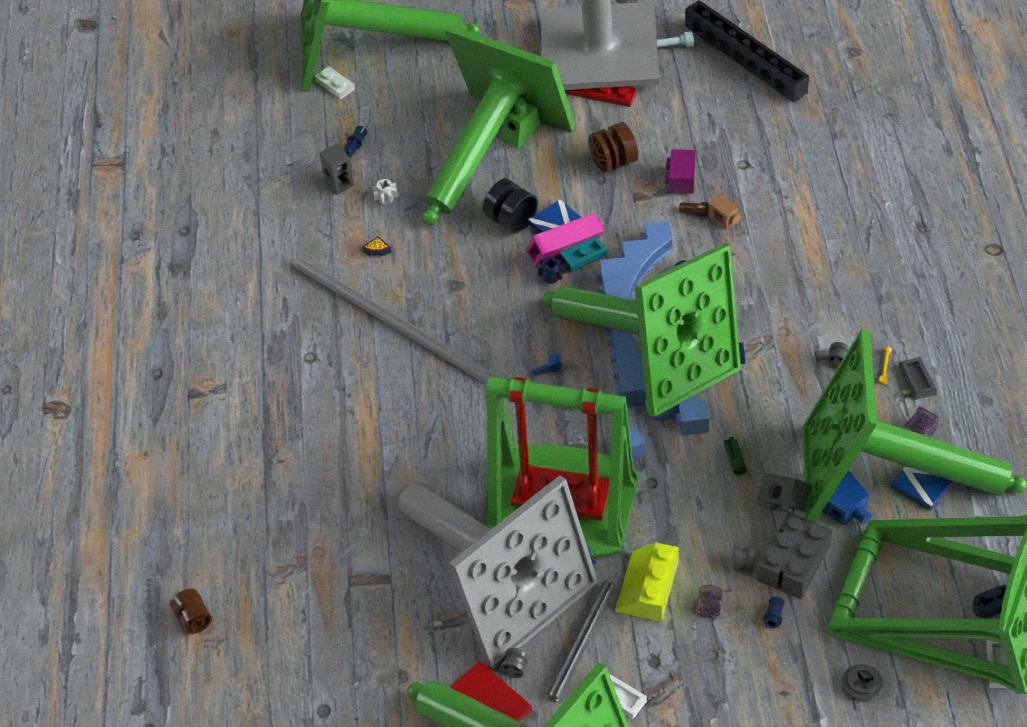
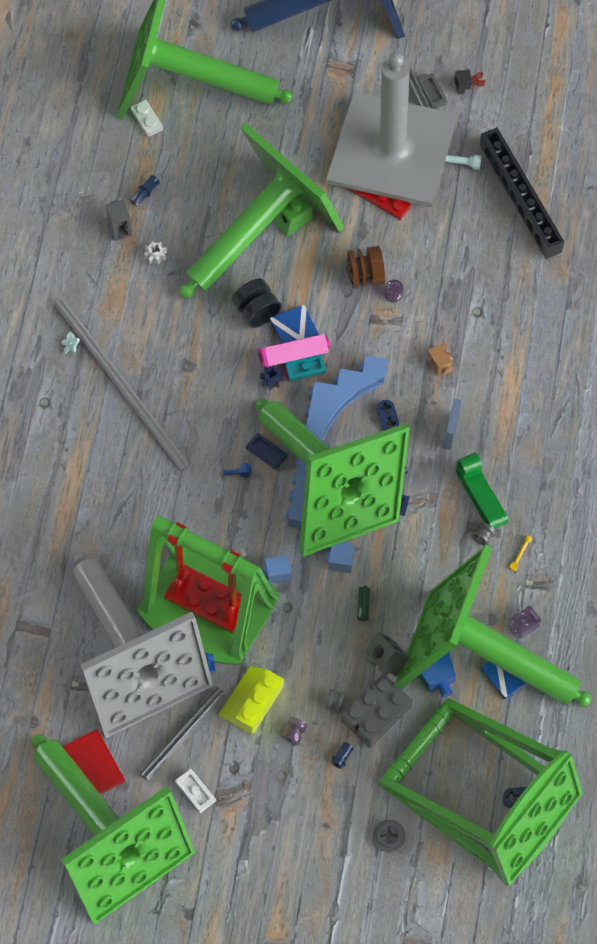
camera: 10 degrees right, 15 degrees up
(321, 293) = (70, 343): none -> light aqua plant
(376, 246) = (131, 308): tile -> none
(514, 663) = (123, 739): dark grey wheel -> none
(571, 340) = (266, 451): none -> dark blue tile
(649, 165) = (396, 287): none -> clear purple wheel
(681, 171) = (418, 307): magenta brick -> none
(694, 208) = (416, 348): reddish brown arm -> none
(762, 261) = (452, 424): none -> sand blue tile
(814, 316) = (470, 475): none -> green beam
(917, 378) = (542, 573): dark grey tile -> none

